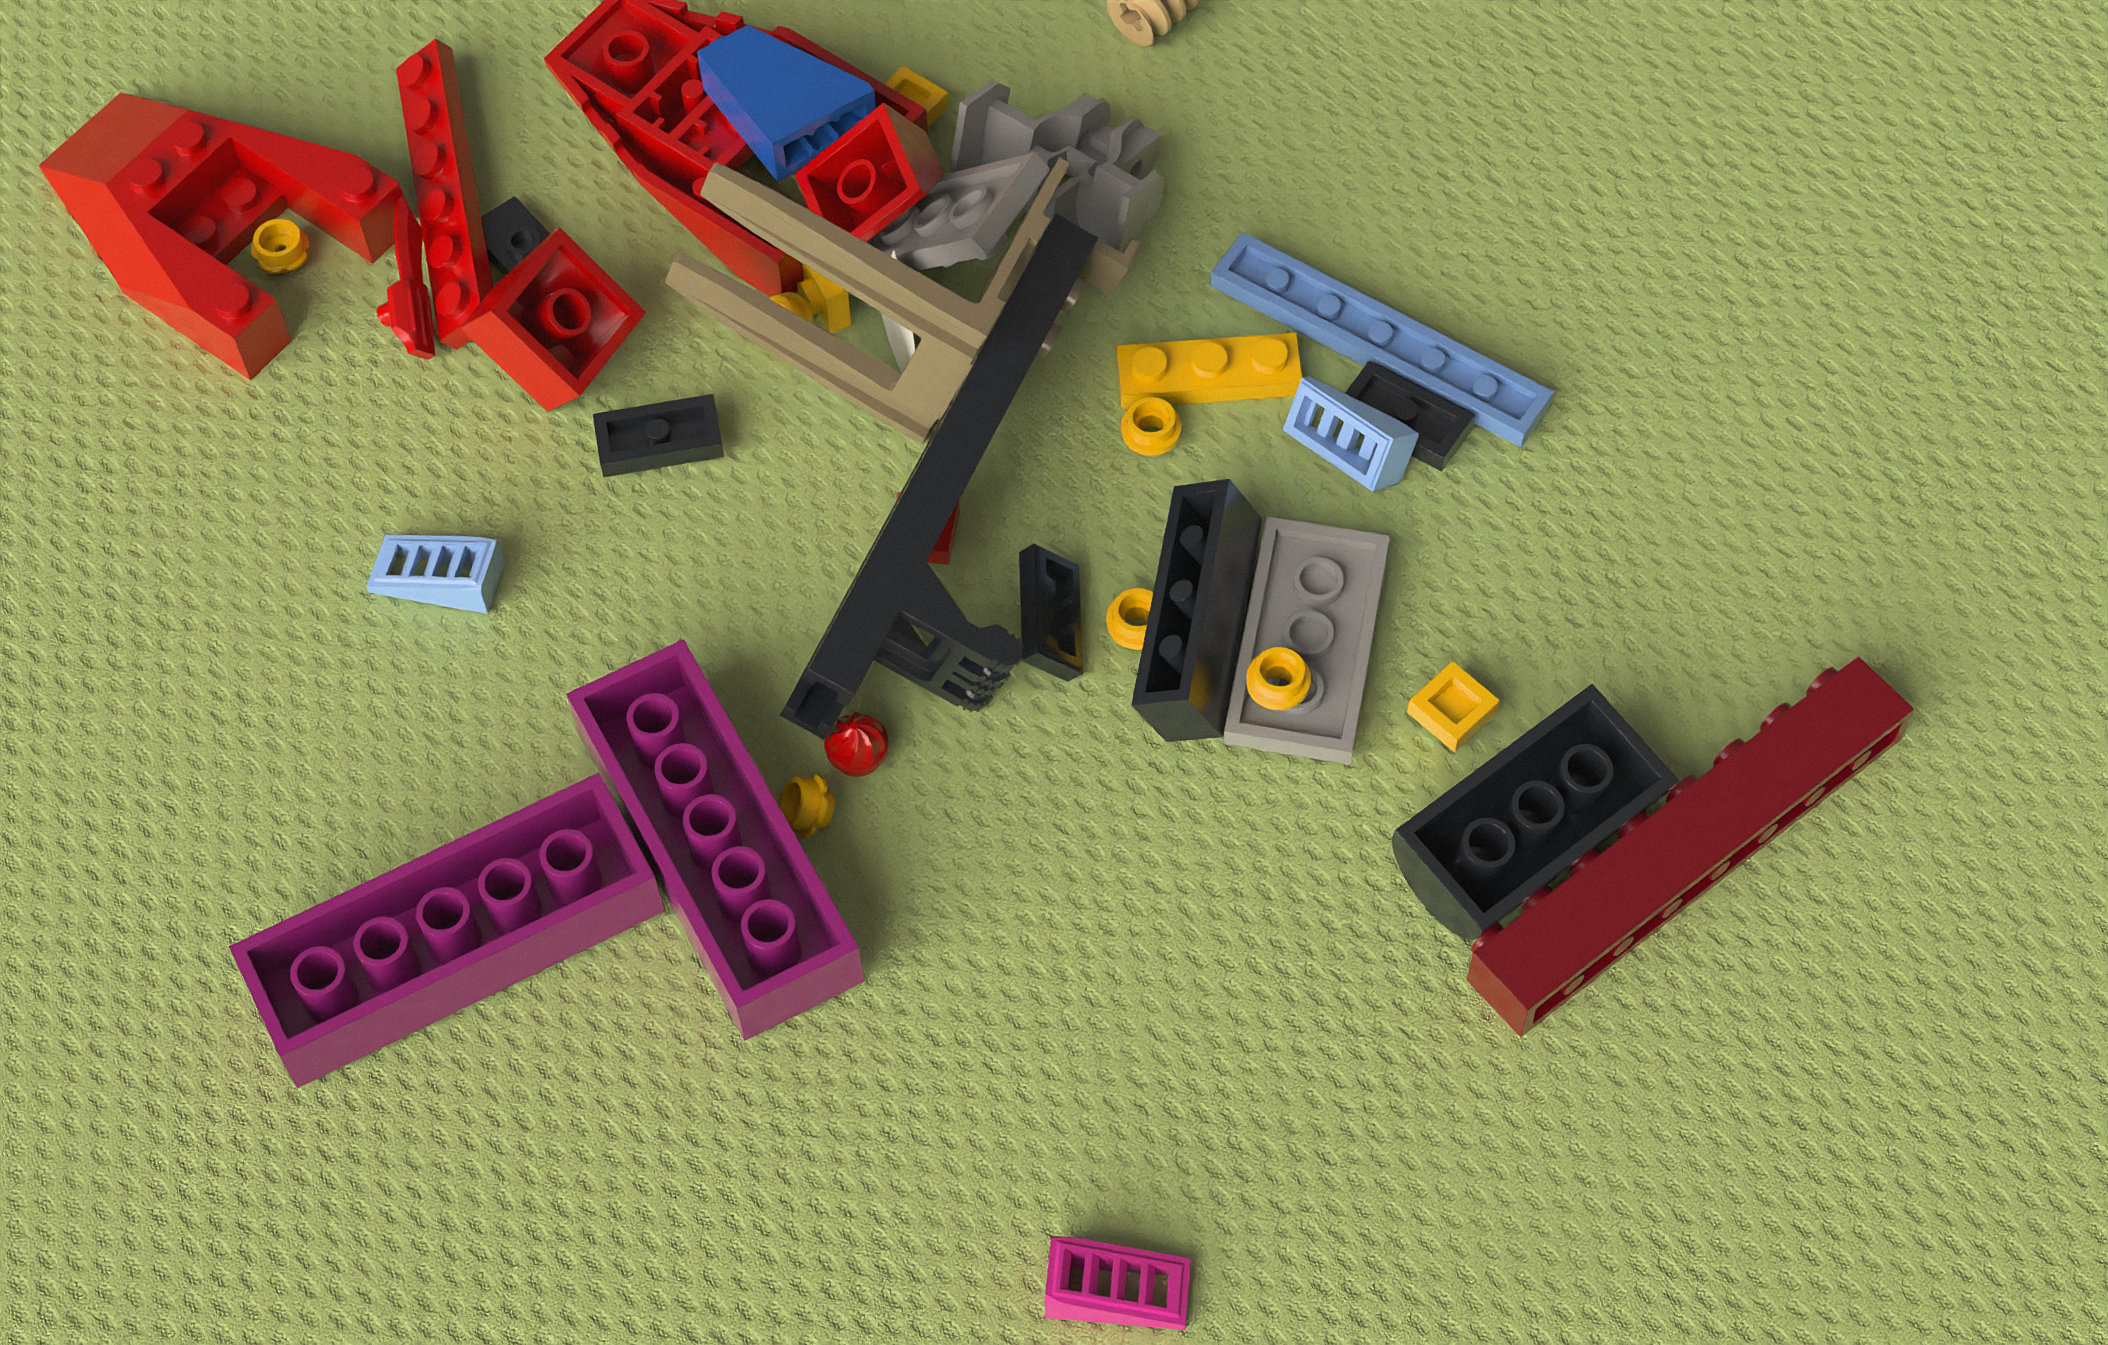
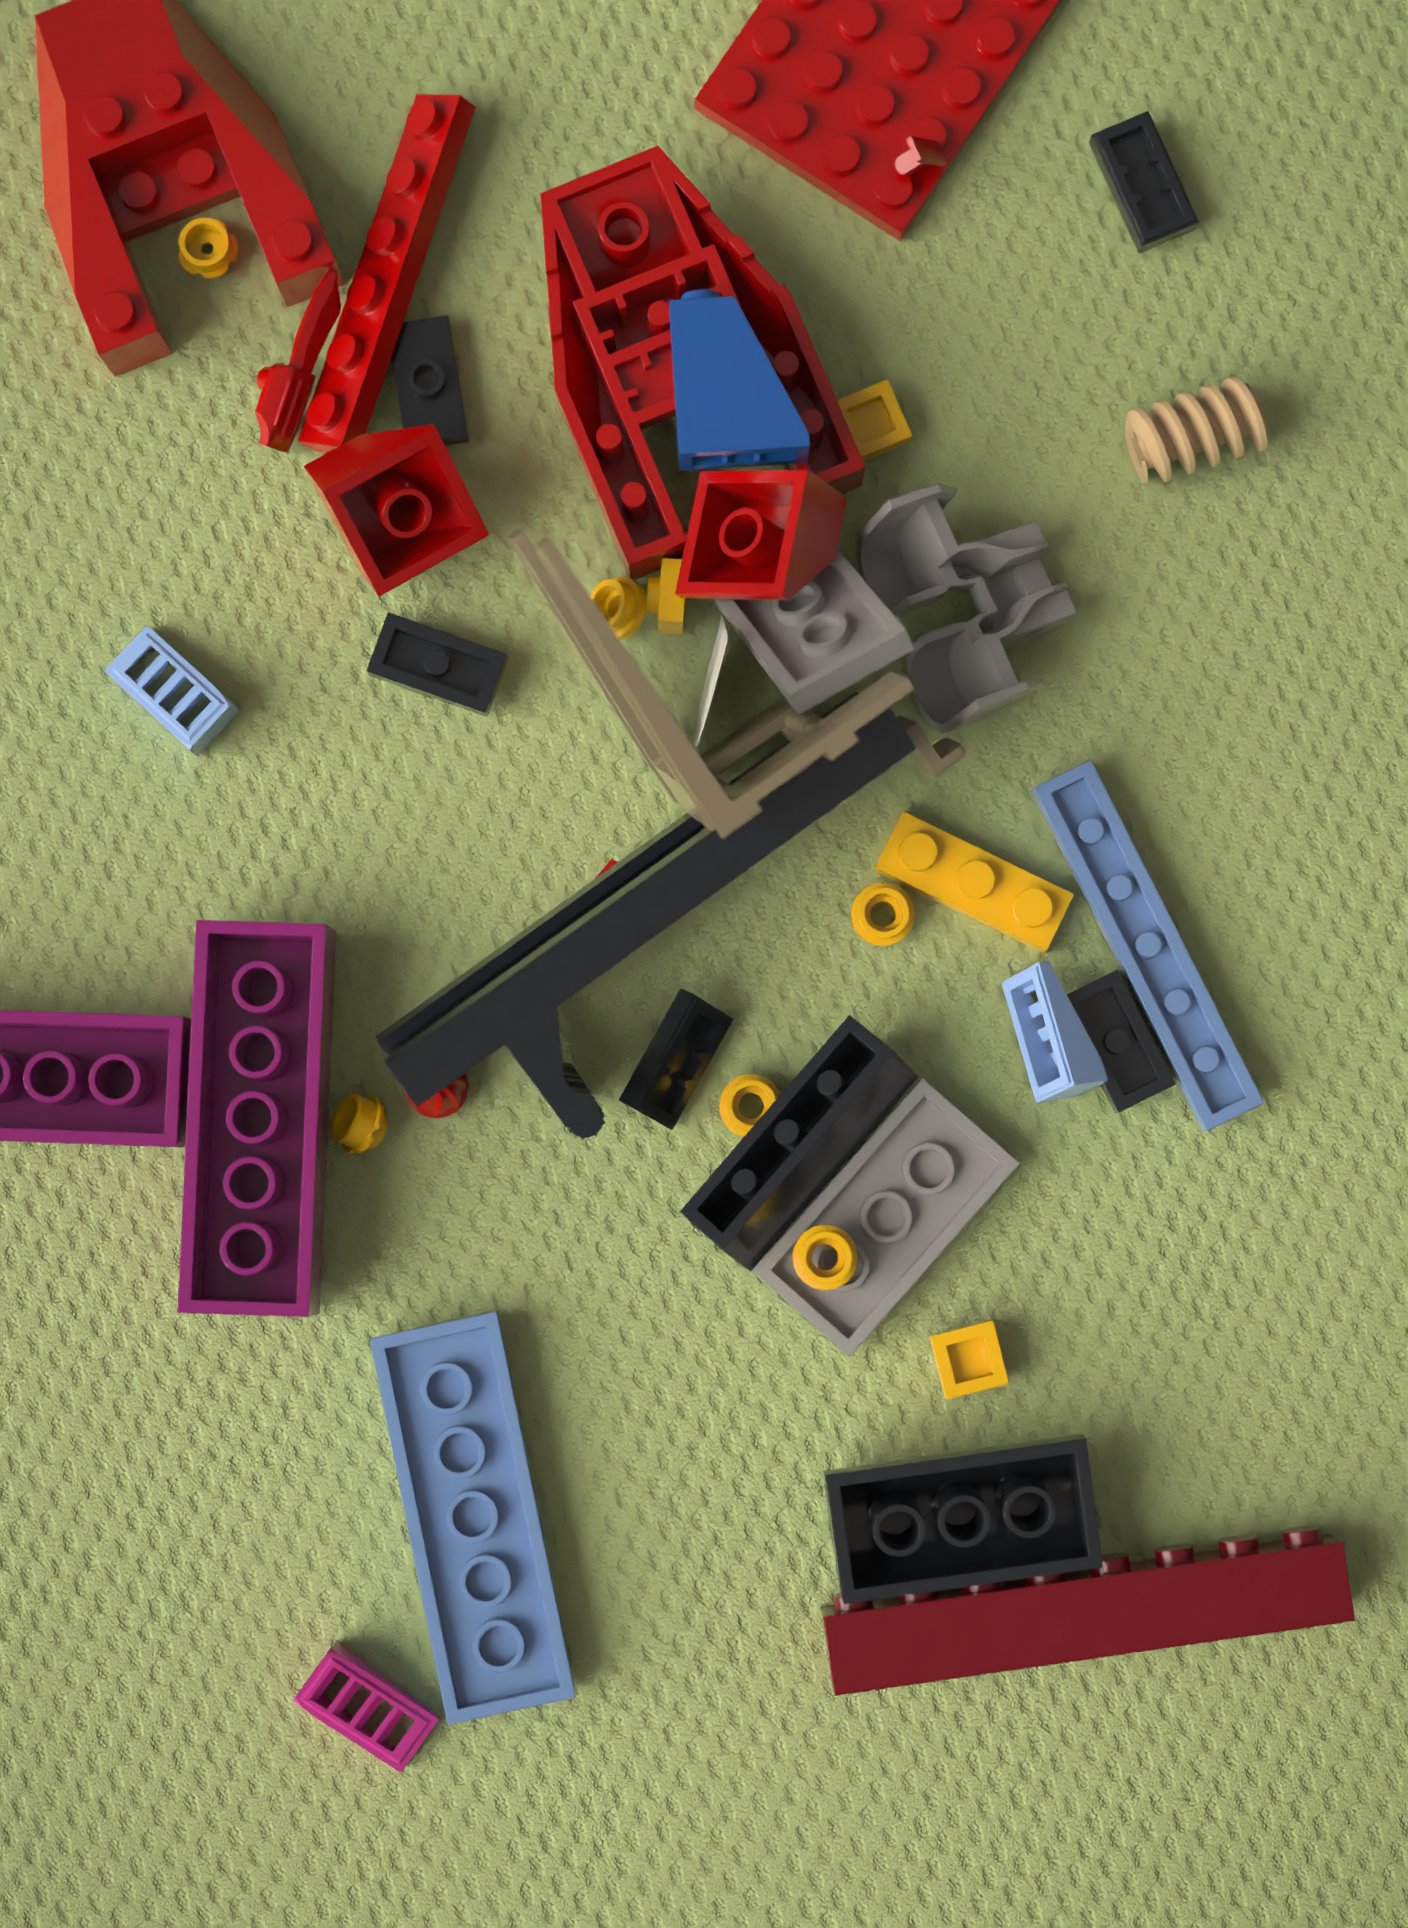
camera: 30 degrees right, 25 degrees up
(1113, 1067) = (473, 1518): none -> medium blue plate

